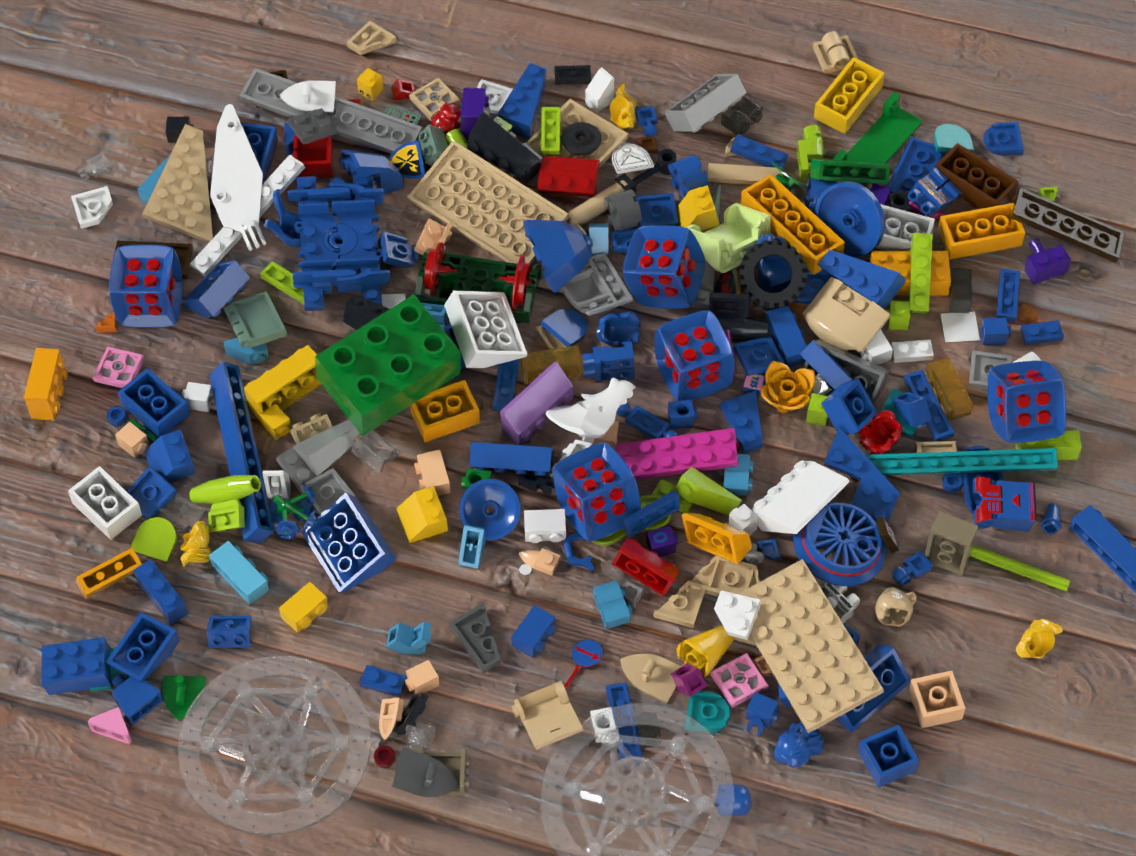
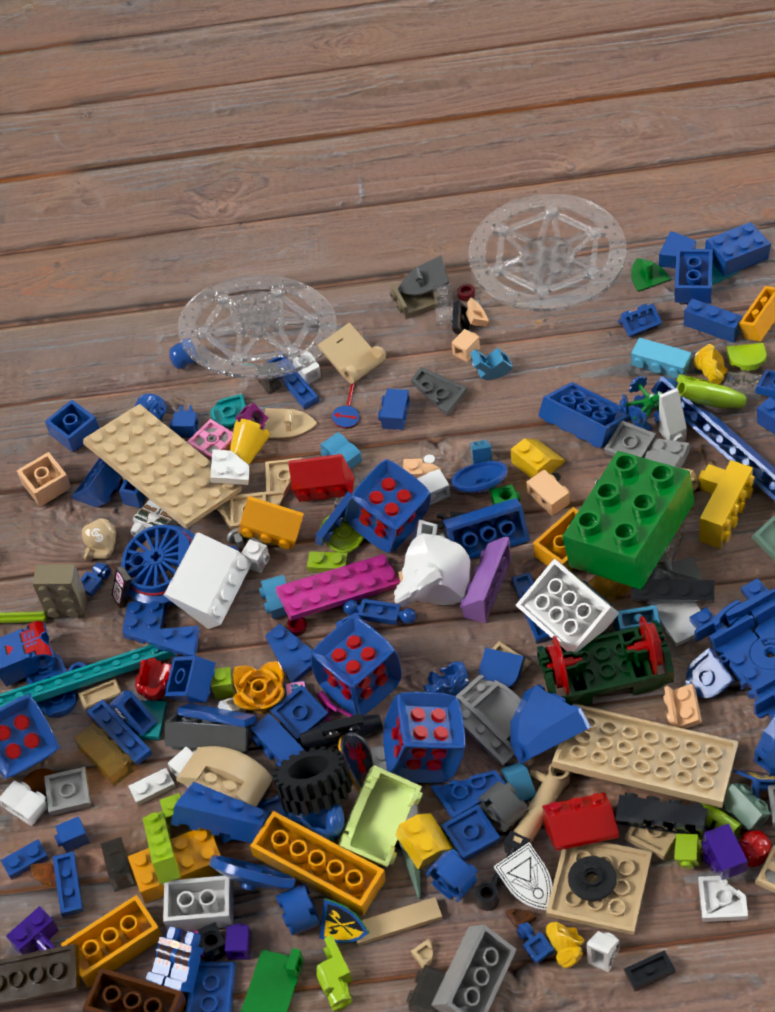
camera: 165 degrees right, 5 degrees down
(110, 725) = (685, 226): bright pink slope -> none
(303, 607) = (591, 355): yellow brick -> none
(383, 681) = (497, 337): blue plate -> none
(524, 101) = (680, 900): blue wedge -> none
(537, 362) = (495, 627): clear yellow brick -> none
(550, 131) = (629, 870): lime plate -> none
(610, 363) = (437, 642): blue hips -> none
(662, 541) = (317, 513): dark purple brick -> none
(705, 492) = (300, 561): lime slope -> none
(758, 152) = (390, 952): blue plate -> none
(849, 171) = (273, 939): green brick -> none
(960, 327) = (110, 830): white sticker -> none

